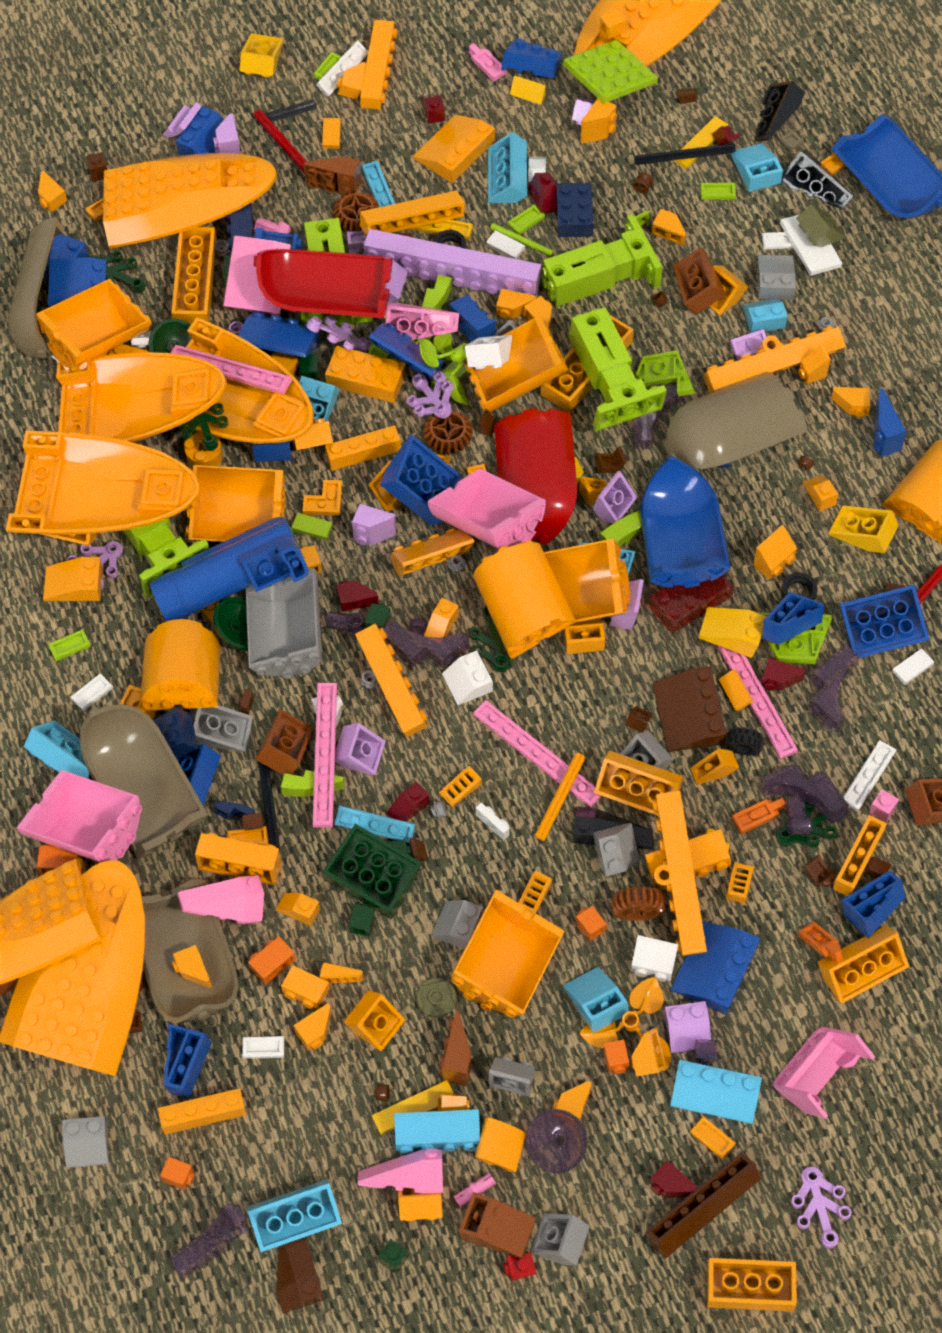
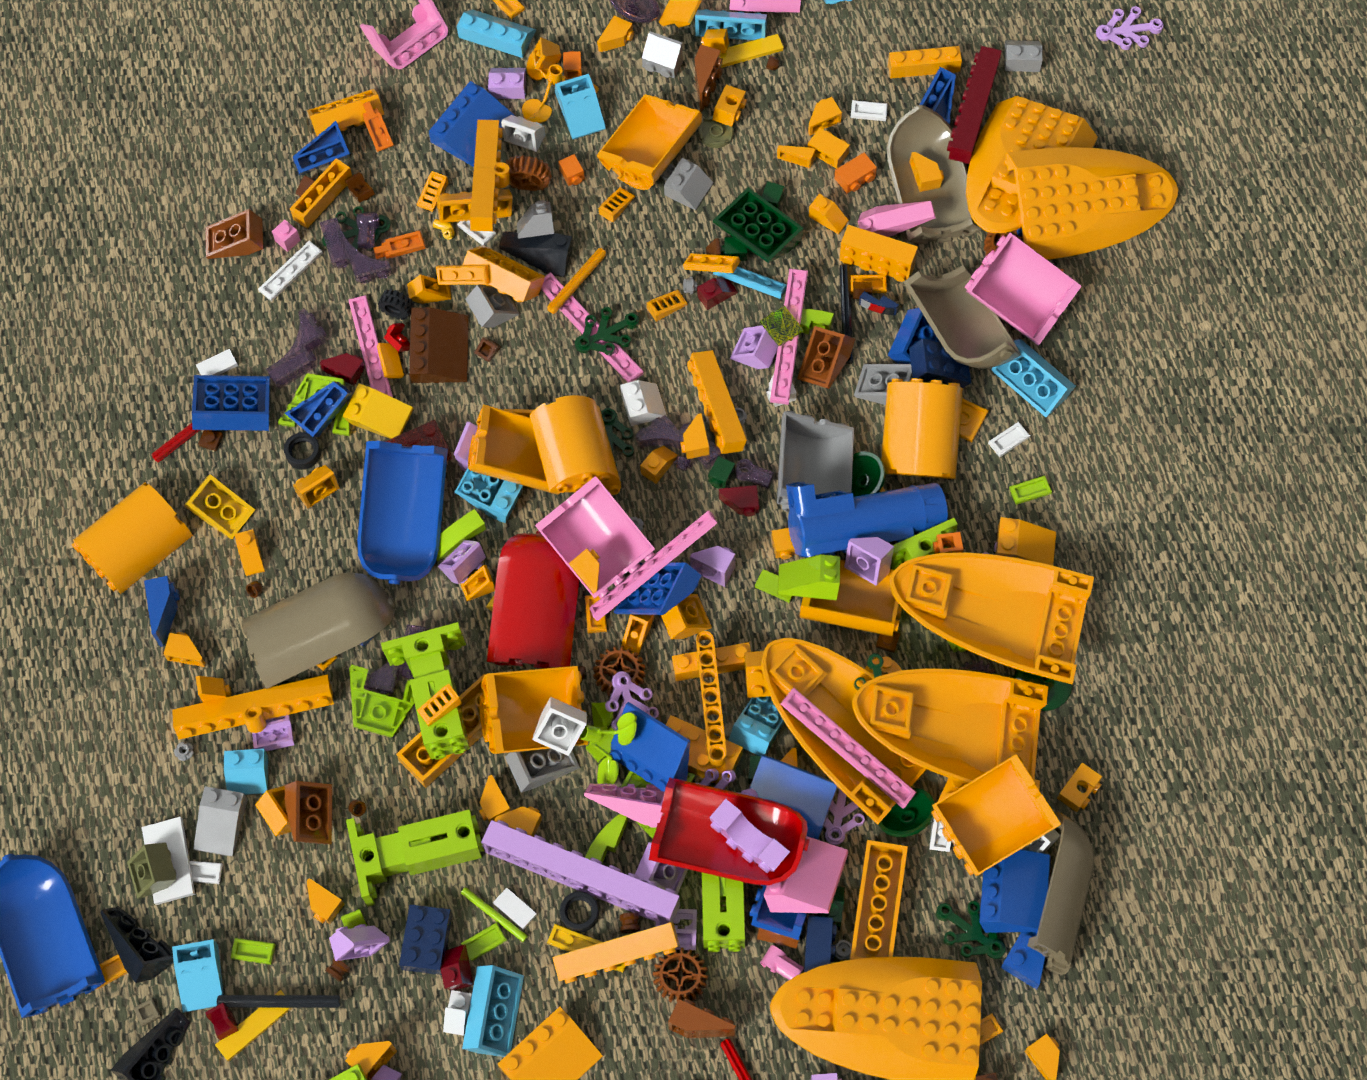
camera: 170 degrees left, 5 degrees up
(28, 384) = (1083, 777): none -> light orange brick
(139, 1053) = (975, 104): none -> dark red brick
(146, 544) = (952, 540): none -> orange brick
(177, 1173) = (947, 21): orange brick -> none
(218, 528) = (869, 558): none -> lavender slope
(245, 701) = (859, 405): reddish brown plate -> none
(277, 499) = (811, 577): none -> lime slope
(301, 276) = (747, 838): none -> lavender brick
(328, 503) = (757, 606): light orange plate -> none
(333, 756) = (781, 326): none -> clear neon green piece
(351, 374) = (713, 707): none -> light orange beam
(374, 1020) = (773, 116): light orange slope -> none
(377, 183) = (648, 1010): medium azure tile -> none
(406, 631) = (695, 439): none -> light orange slope
(417, 502) = (653, 565): none -> bright pink tile
(418, 829) = (711, 263): none -> light orange tile
(426, 1034) = (729, 105): none -> light orange brick
(430, 552) = (661, 513): light orange slope -> none
(471, 319) = (570, 801): blue wedge -> none
(488, 816) = (637, 262): white plate -> none
(490, 477) = (587, 568): none -> light orange slope
(519, 744) = (604, 333): none -> dark green plant
(594, 346) = (443, 710): none -> light orange slope
(610, 462) = (456, 613): reddish brown bracket -> none
(628, 192) = (357, 942): none -> lavender slope
(680, 770) = (462, 274): none -> light orange tile
(705, 1051) = (498, 52): clear purple piece -> none
(734, 710) = (396, 339): none -> red bracket

